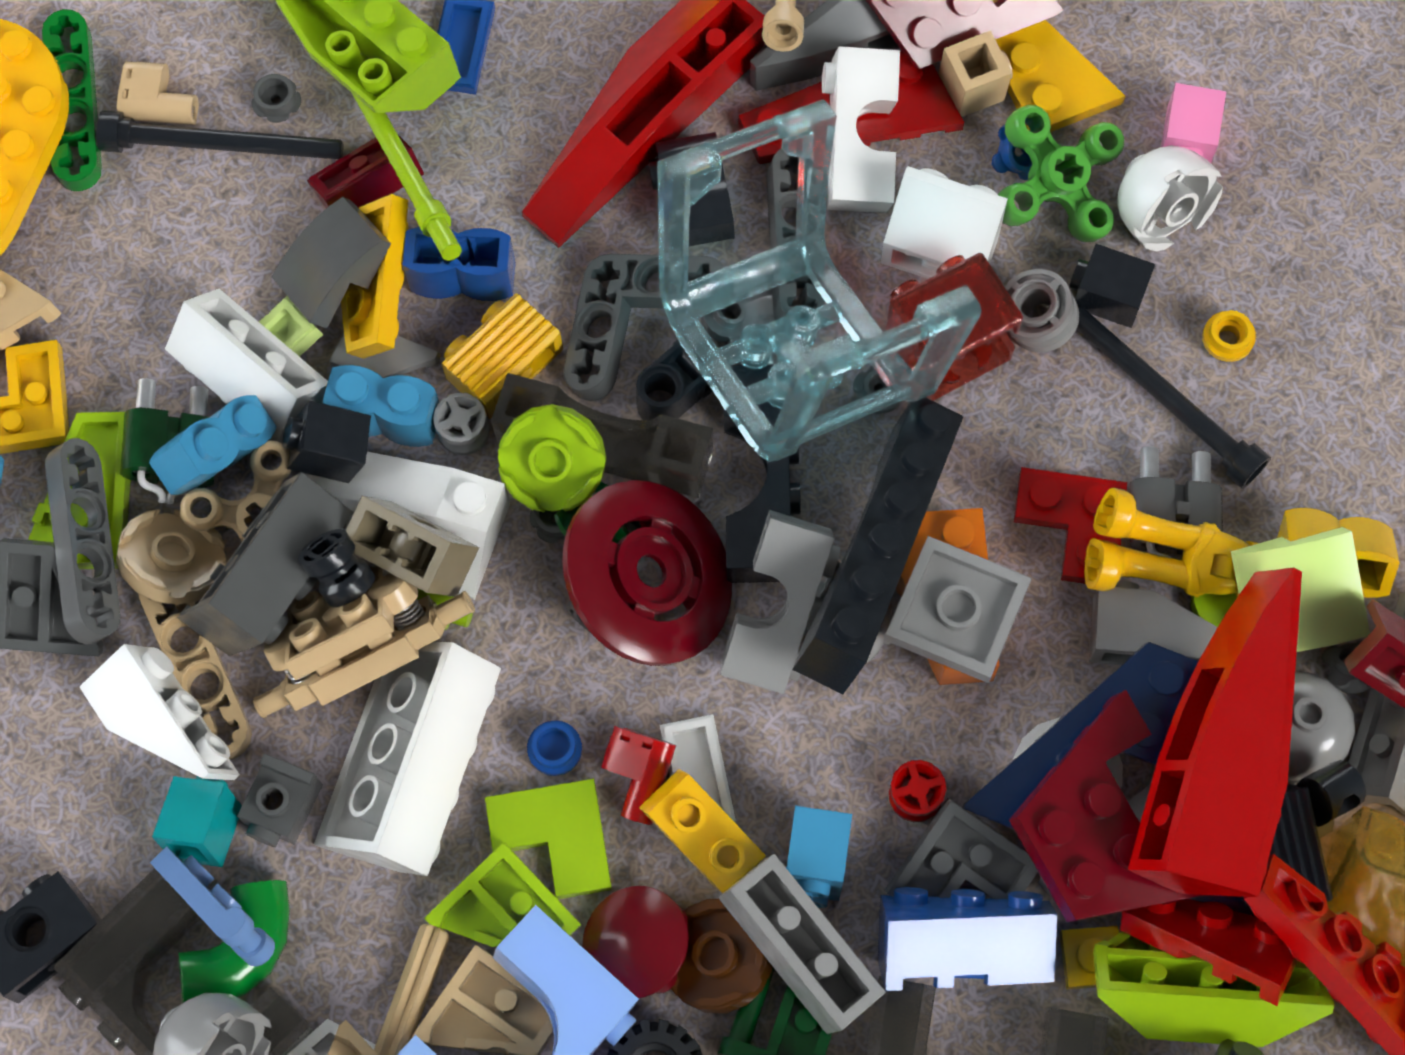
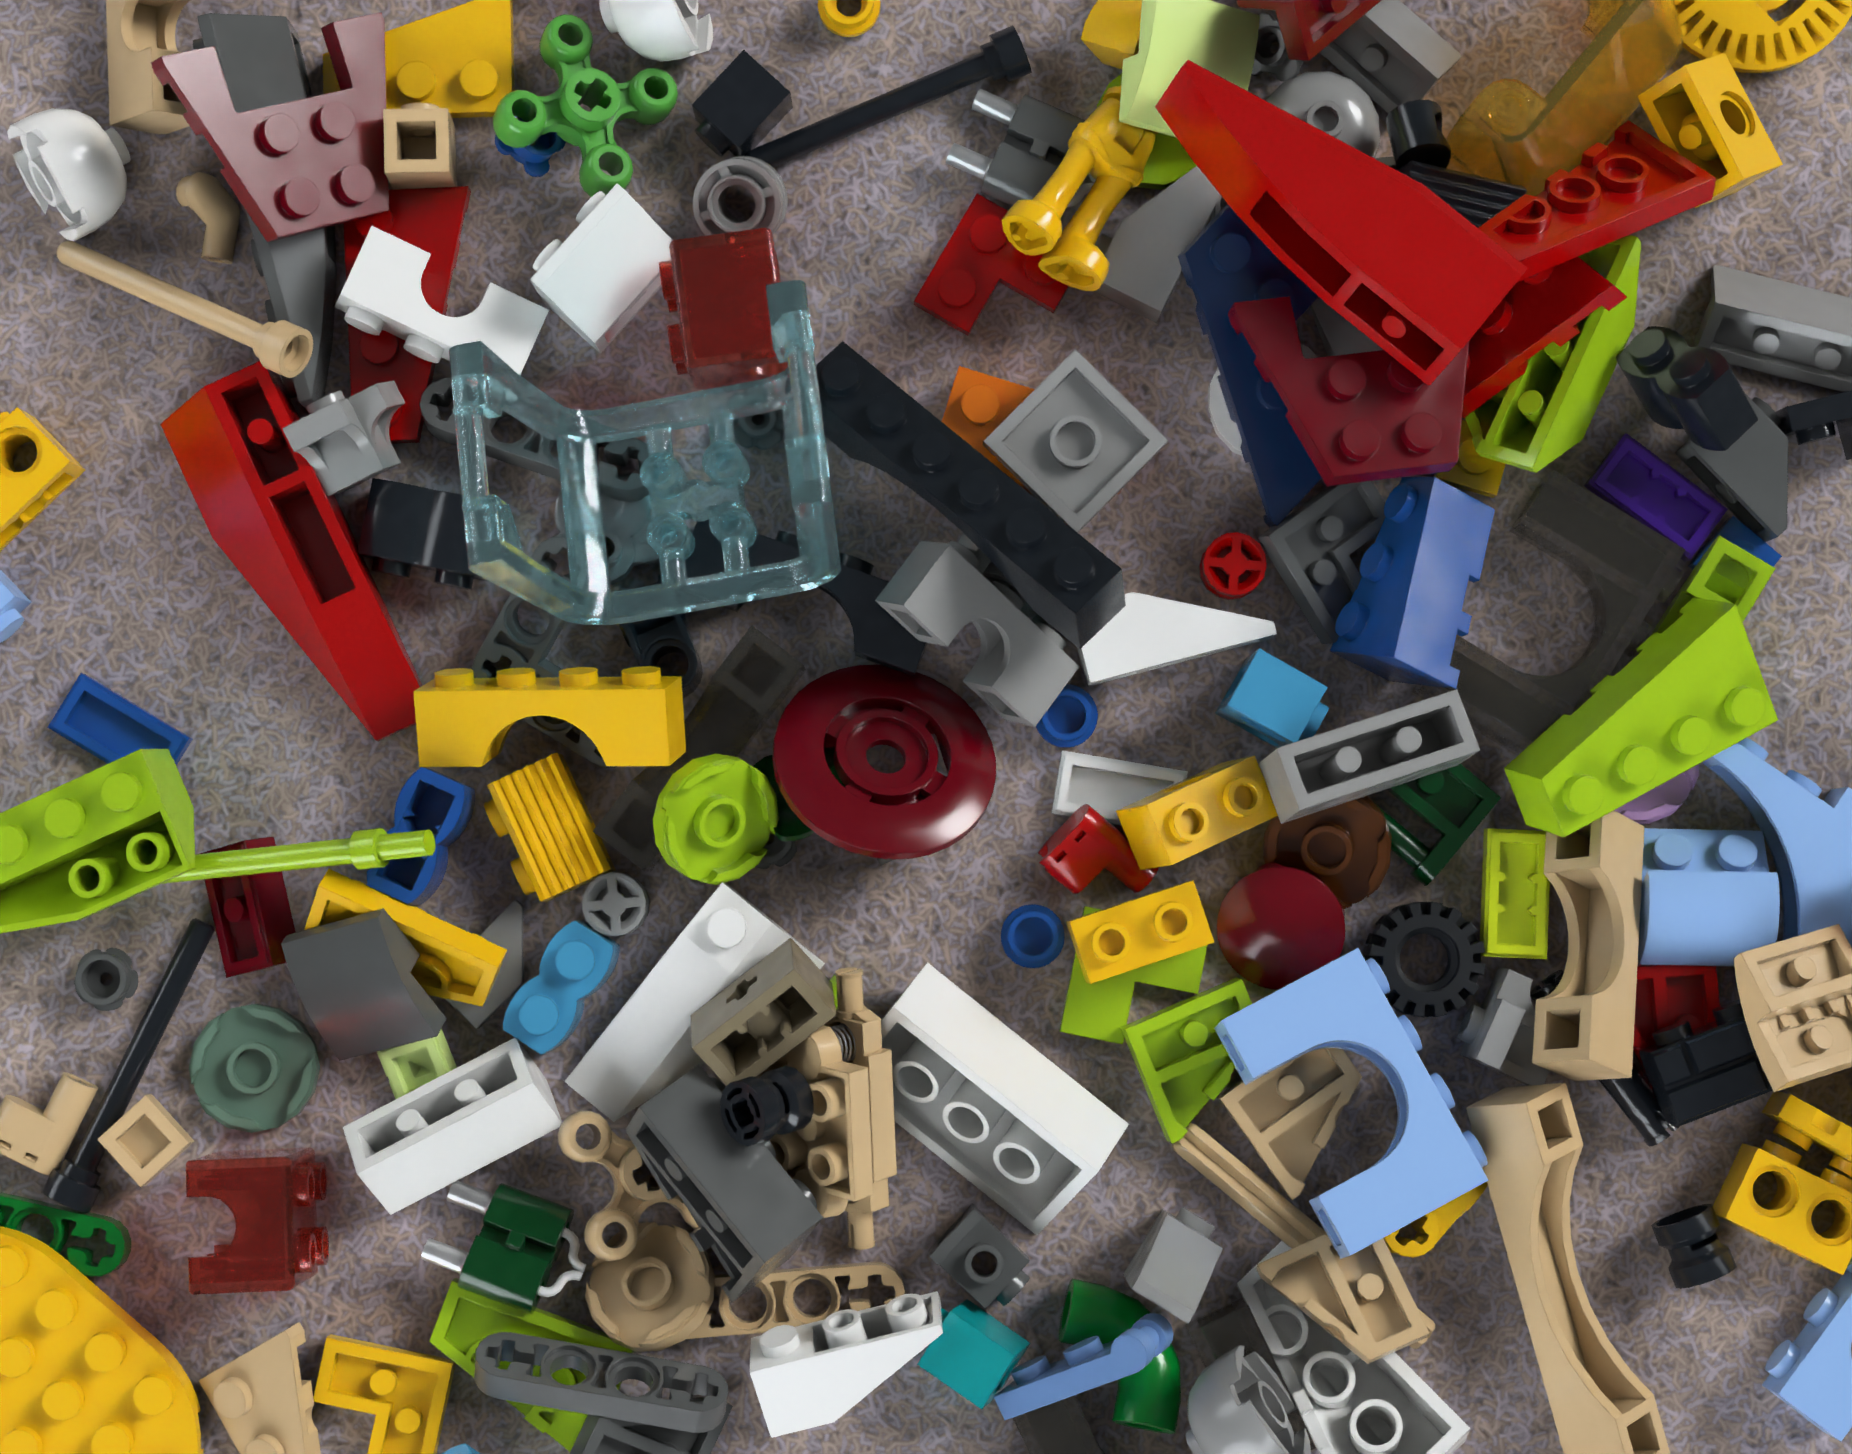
camera: 75 degrees left, 15 degrees up
(131, 262) = (274, 1216): none -> clear red piece
(163, 162) = (145, 1140): none -> tan tile
(212, 444) = (546, 1196): dark azure brick -> none
(251, 237) = (279, 1061): none -> sand green tile
(323, 953) = (1175, 1263): none -> light grey slope
(327, 441) = (593, 1064): black brick -> none
(586, 820) = (1140, 932): none -> yellow brick
(603, 364) = (626, 717): none -> yellow arch
(734, 95) = (348, 436): none -> light grey brick
(742, 708) = (1069, 718): none -> blue plate
(833, 743) = (1164, 632): none -> white slope

